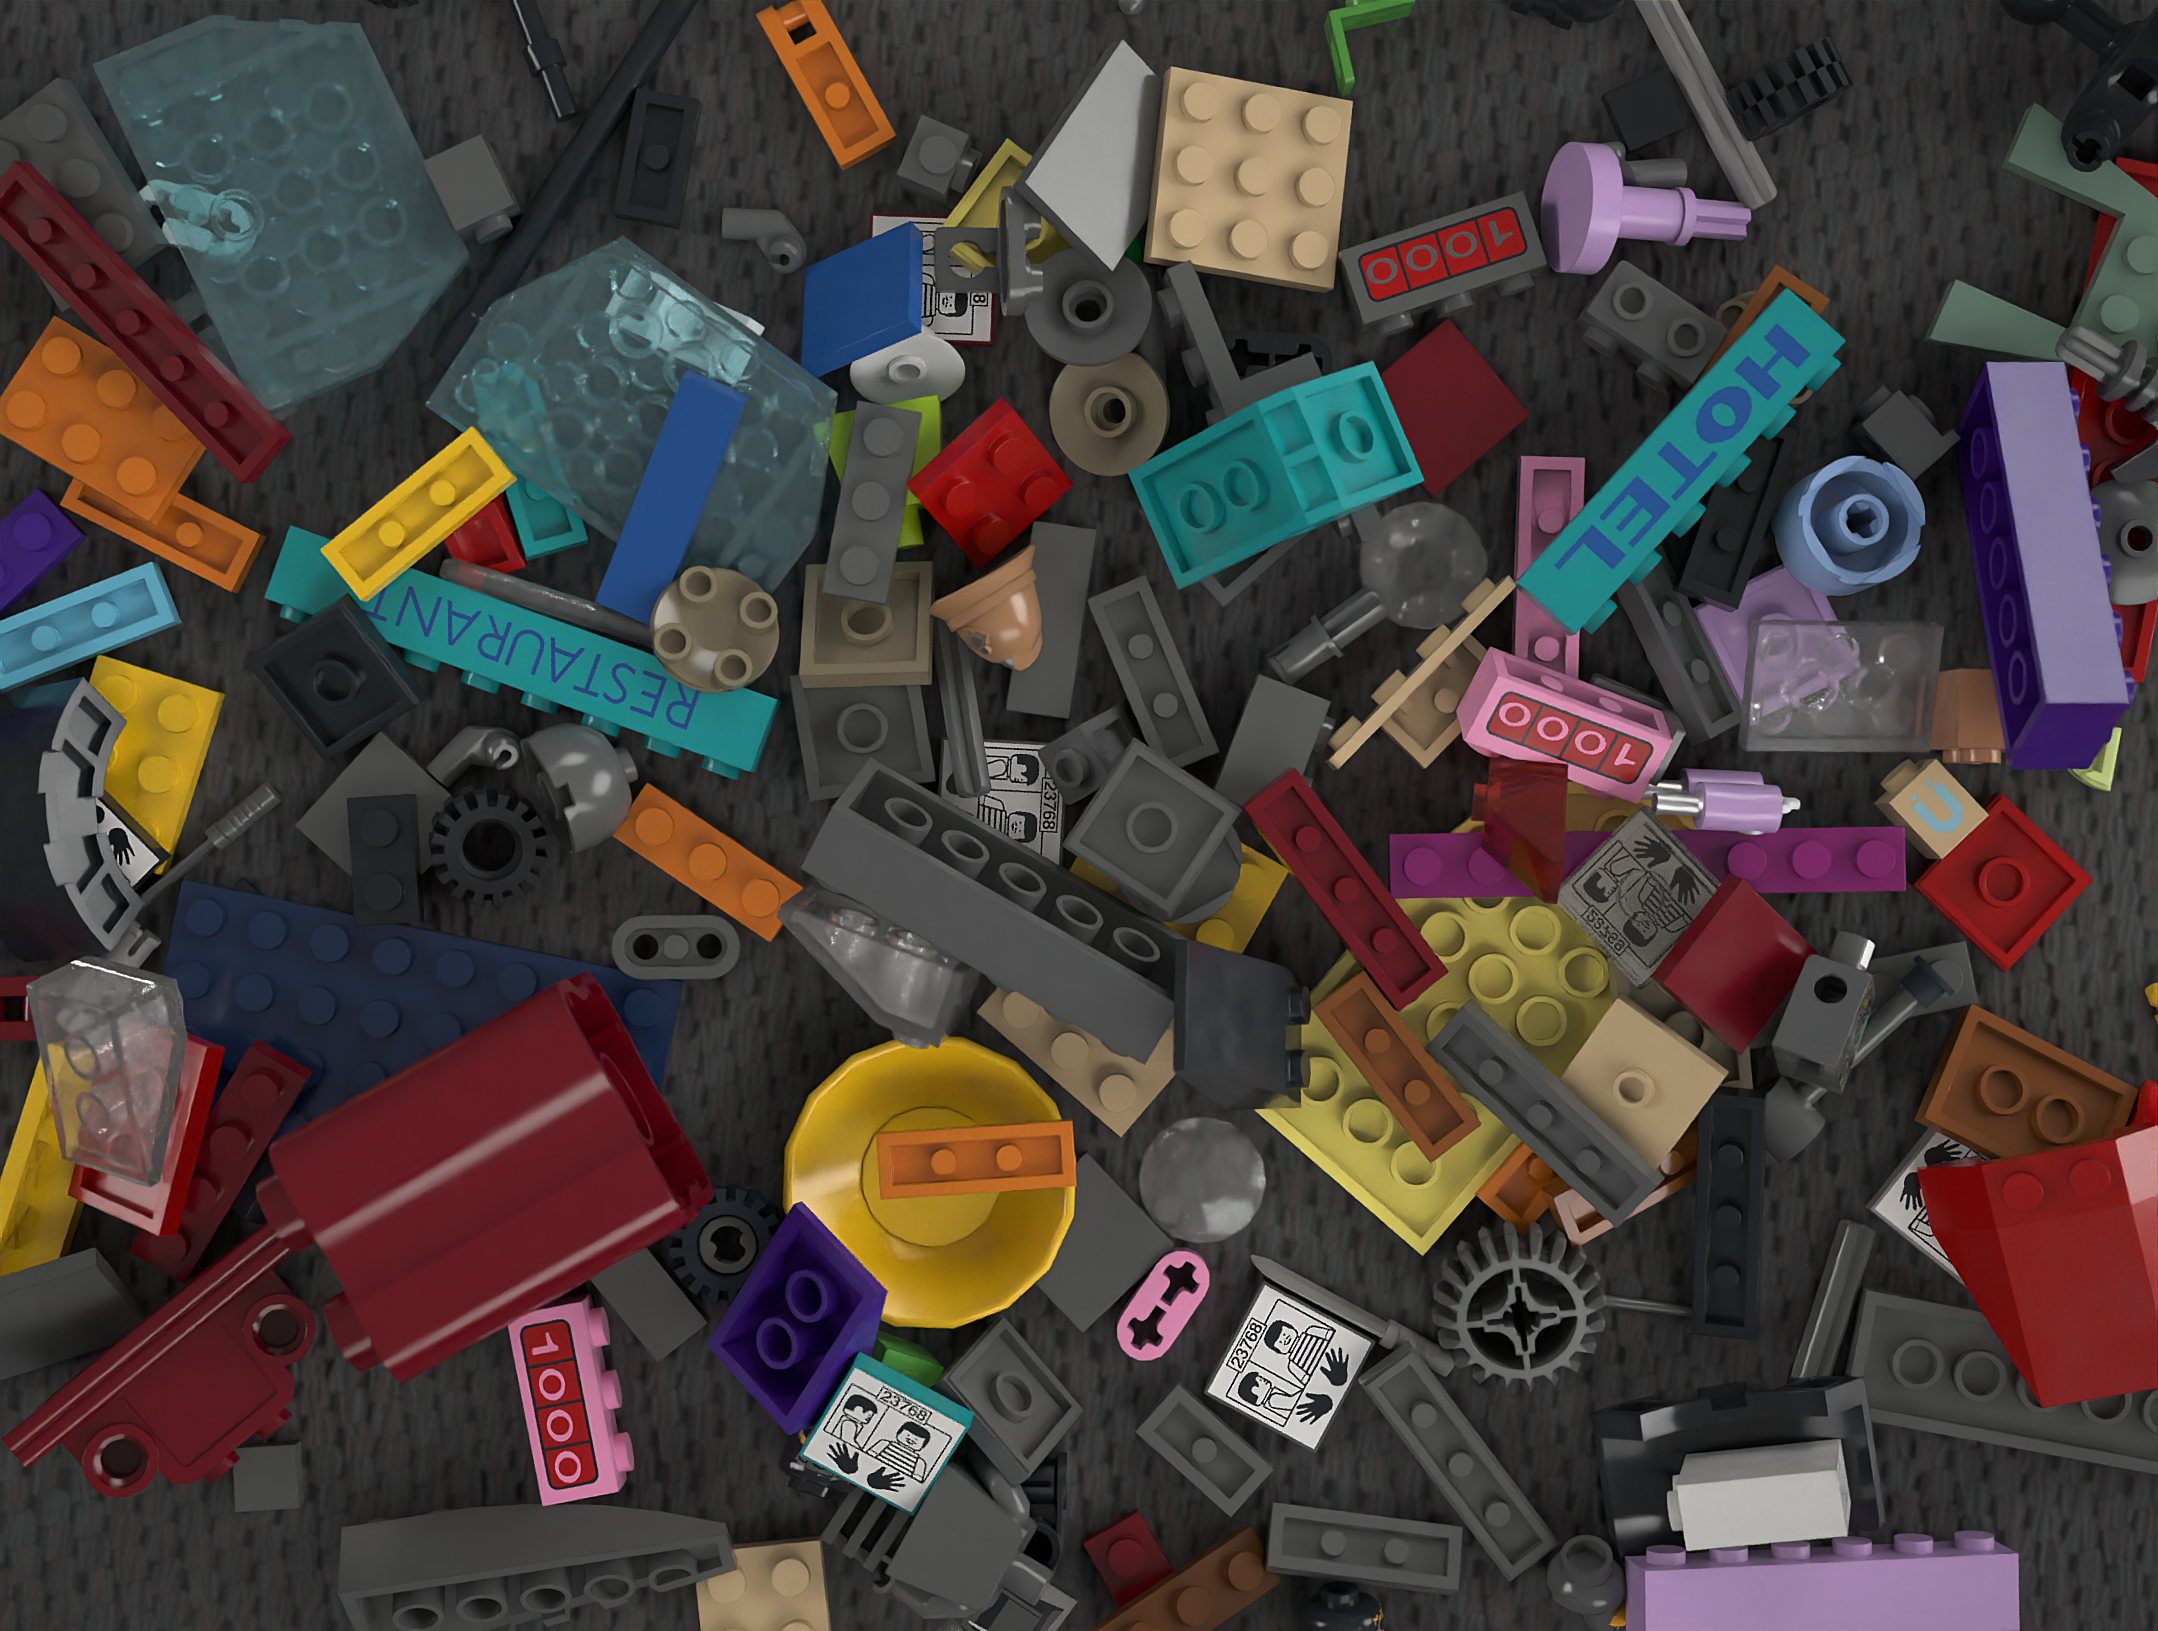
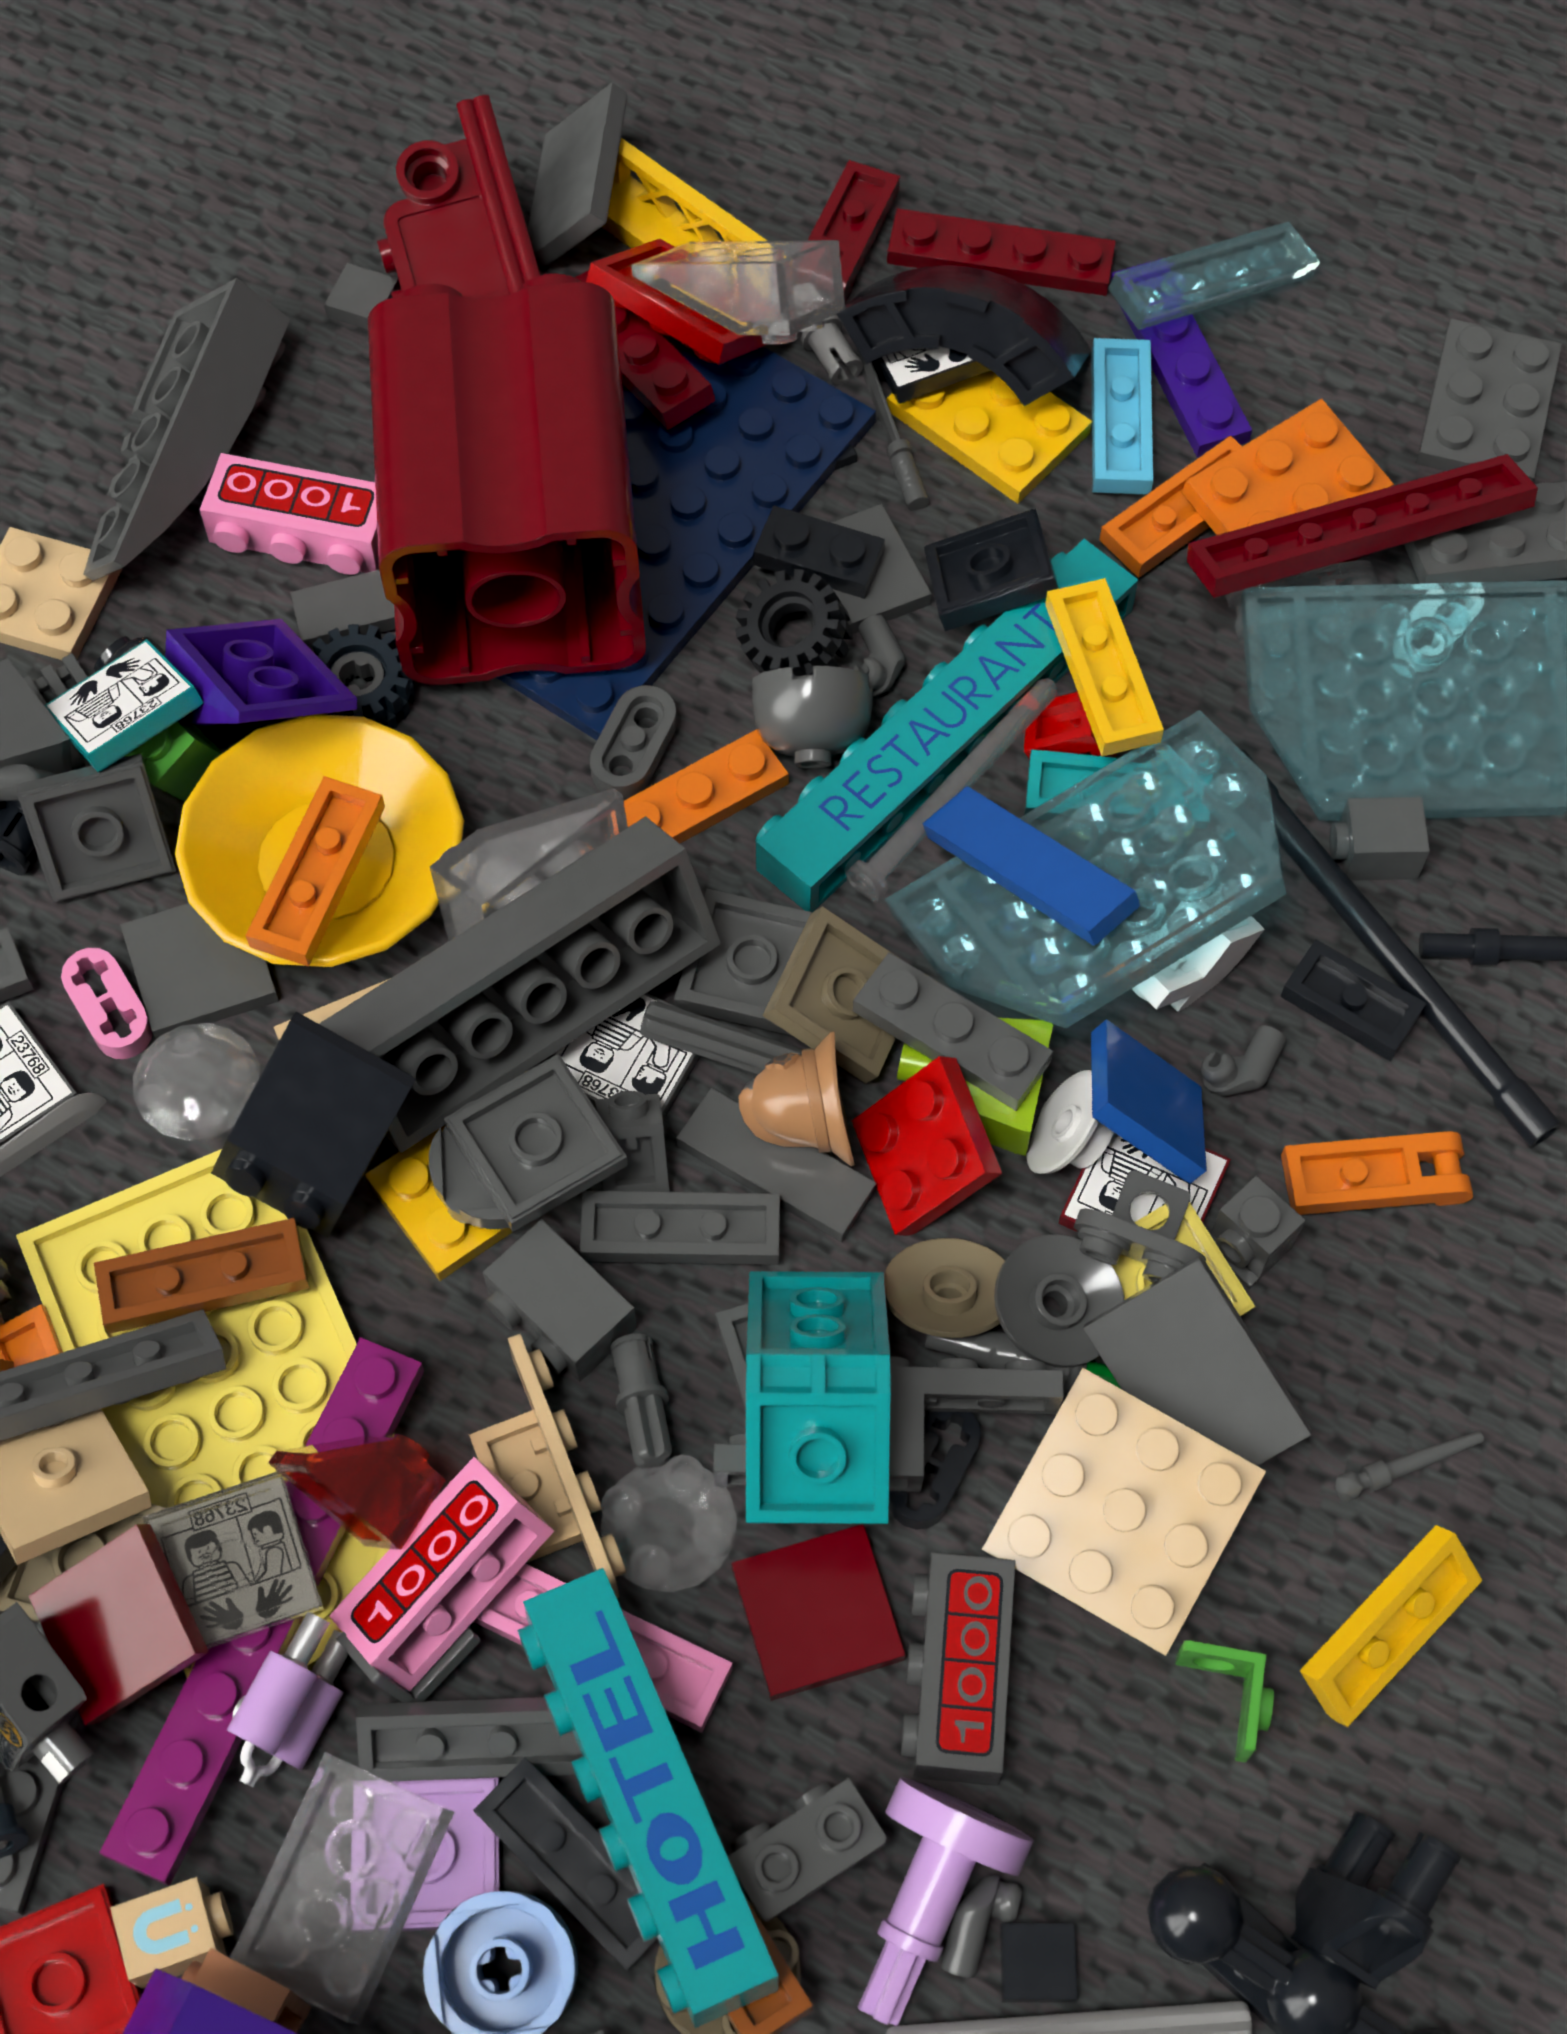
camera: 115 degrees right, 25 degrees down
(714, 629) = (896, 862): dark tan dish -> none
(1344, 888) = (389, 1293): dark red plate -> none

